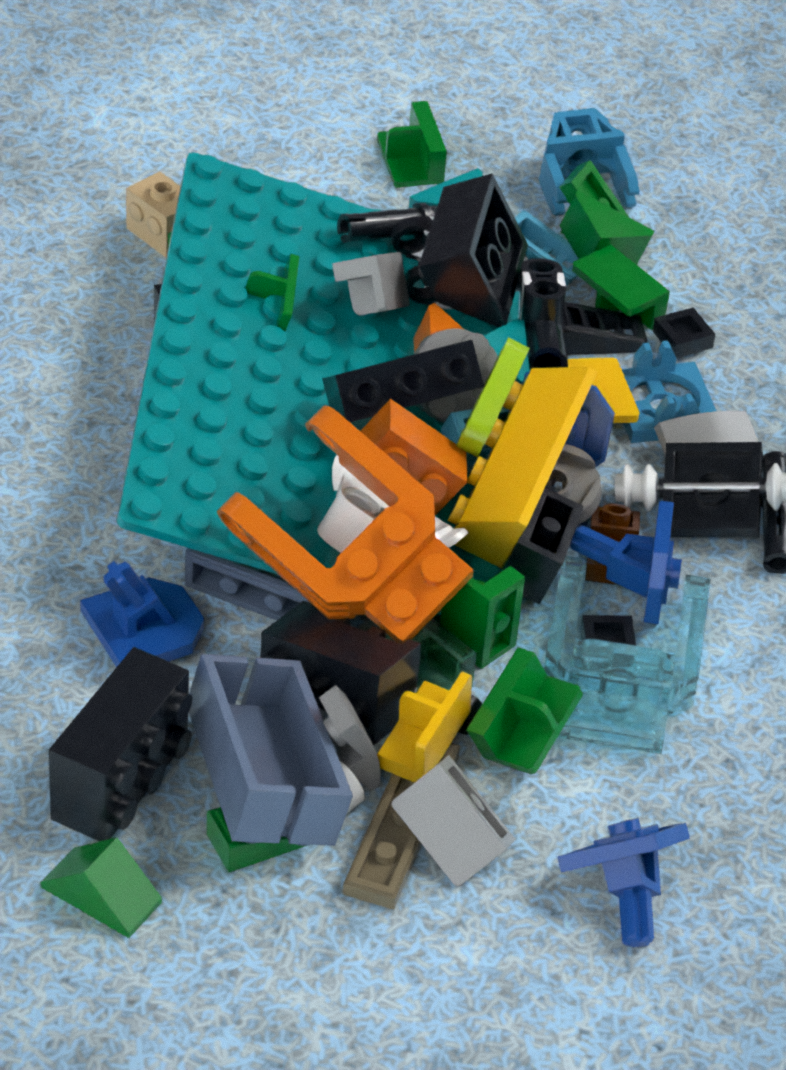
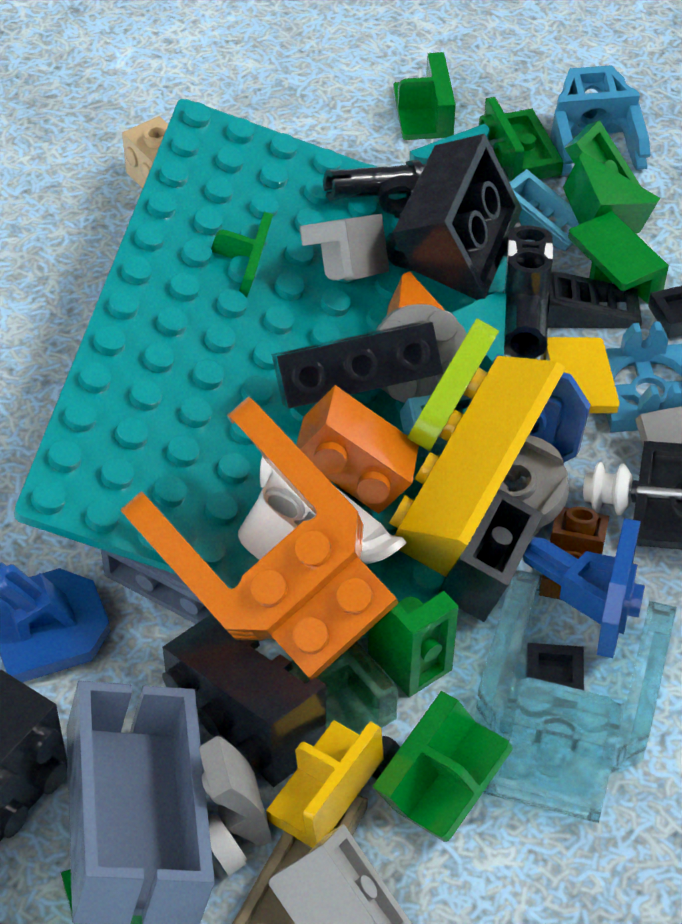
camera: 10 degrees right, 5 degrees up
(517, 182) = (520, 142): none -> green bracket

